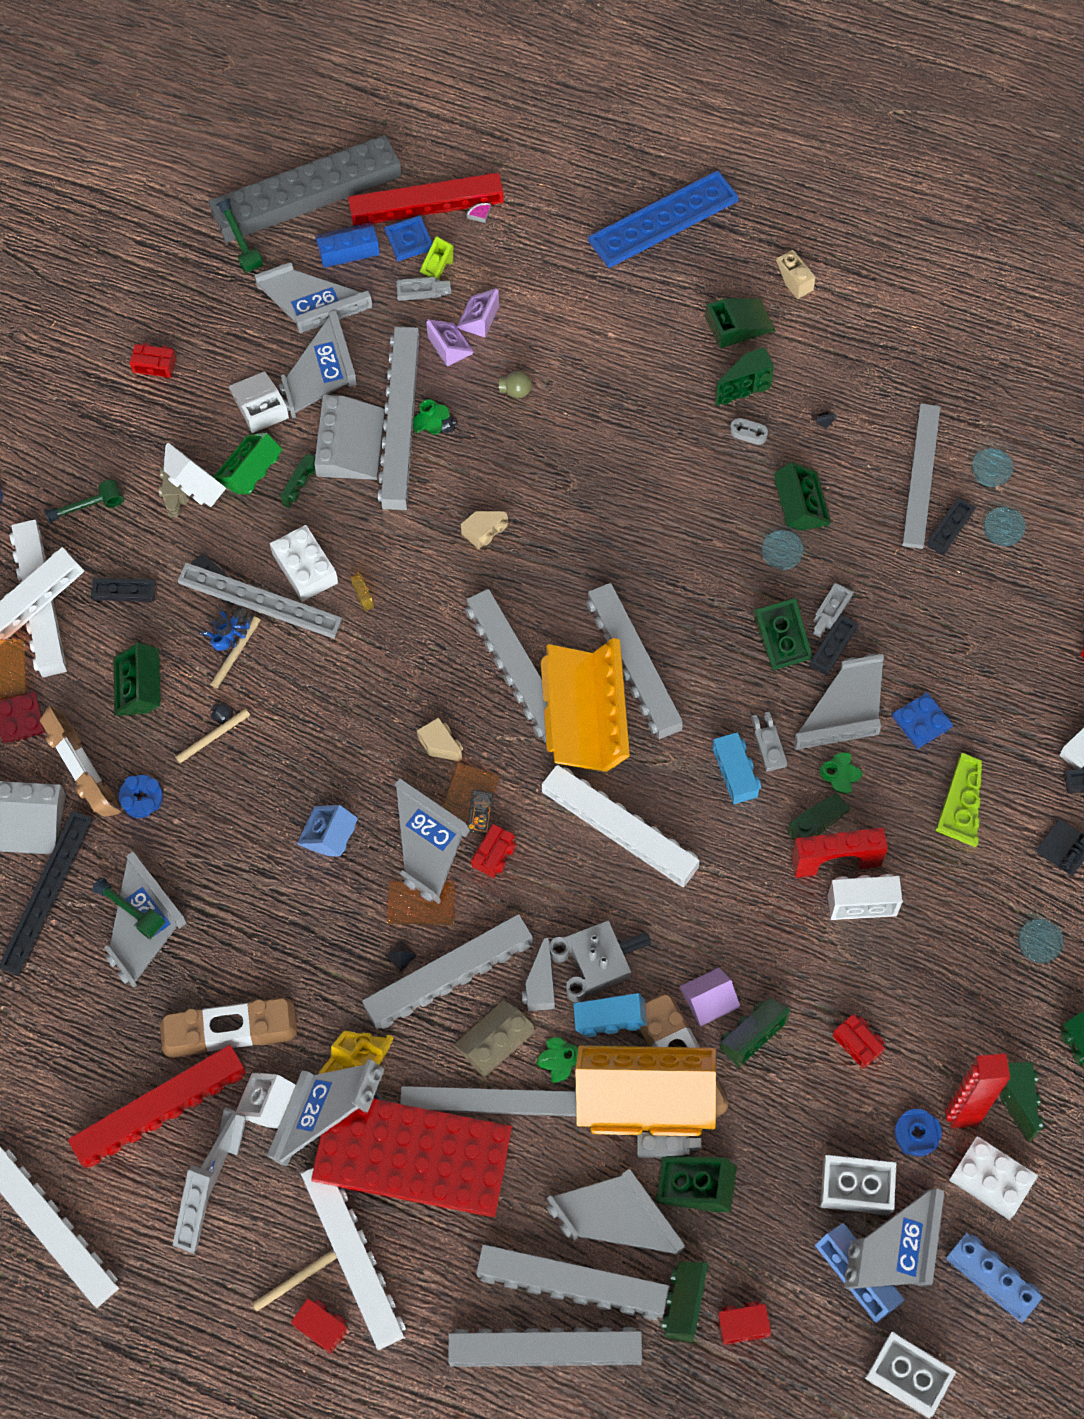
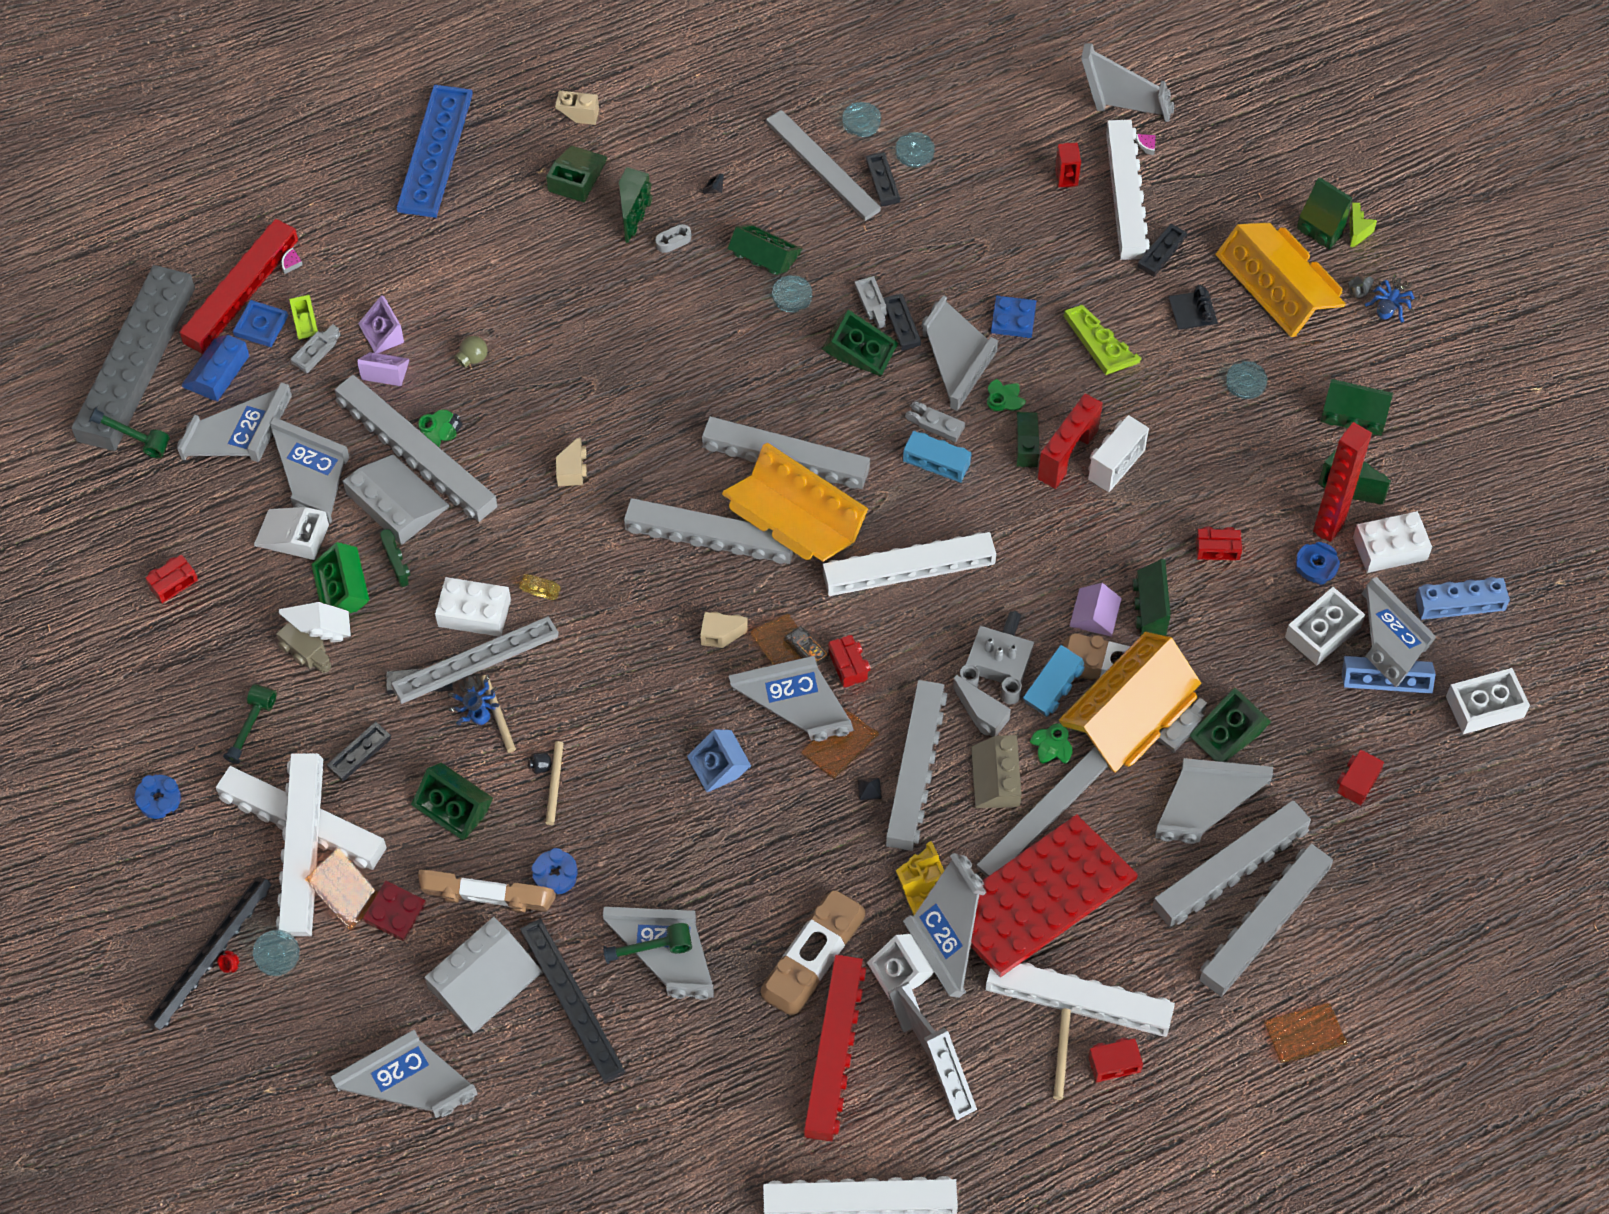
camera: 50 degrees left, 5 degrees down
(685, 1300) = (1314, 796): dark green slope -> none

